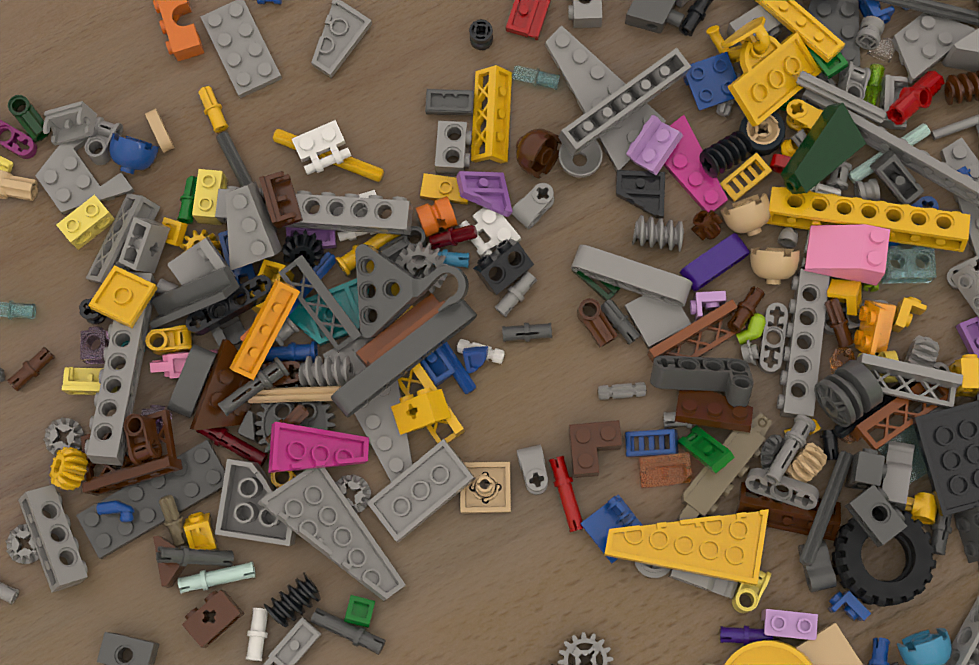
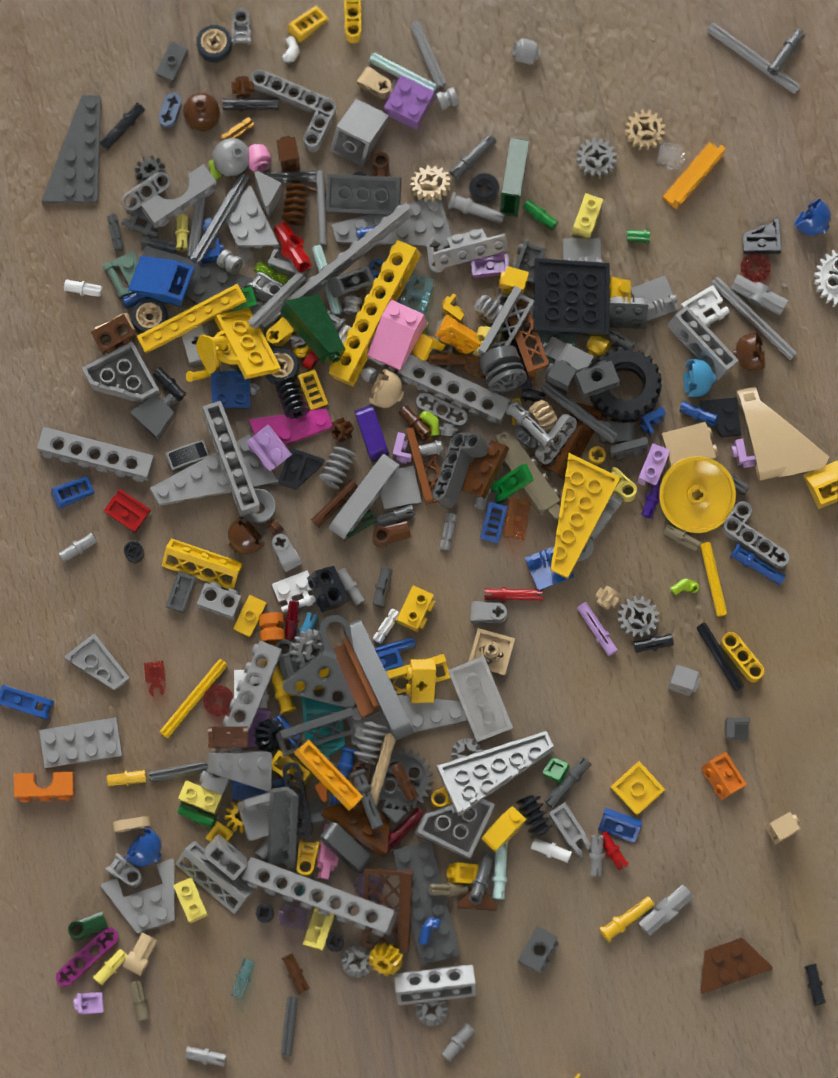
camera: 80 degrees left, 0 degrees up
(70, 122) = (105, 892): light grey hinge -> none
(85, 403) = (340, 944): none -> black bush
(123, 296) = (264, 881): yellow tile -> none
(143, 442) = (385, 890): reddish brown piece -> none
(207, 632) = (539, 886): reddish brown brick -> none
(263, 566) = (504, 829): none -> yellow slope
(311, 448) = (427, 767): dark pink wing -> none
(319, 141) = (183, 701): white plate -> none
(335, 173) = (209, 698): none -> clear red gear
(343, 102) = (155, 674): none -> clear red plate
(474, 357) = (391, 630): blue tile -> none
(486, 190) = (263, 584): medium lavender wing -> none
(511, 379) = (415, 609): none -> yellow brick
(536, 77) = (181, 521): clear light blue axle -> none
(561, 184) = (274, 527): none -> reddish brown plate
(574, 589) = (585, 610): none -> lavender pin
(587, 440) = (481, 569): reddish brown brick -> none
(598, 613) = (607, 597): none -> tan gear
(611, 244) = (340, 498): none -> reddish brown pin
(617, 58) = (186, 455): none -> slope
(718, 338) = (431, 448): none -> light grey pin
(748, 215) = (343, 397): tan cylinder -> none
(784, 542) = (601, 459): none -> yellow bush
(794, 576) = (624, 449): none -> dark grey plate

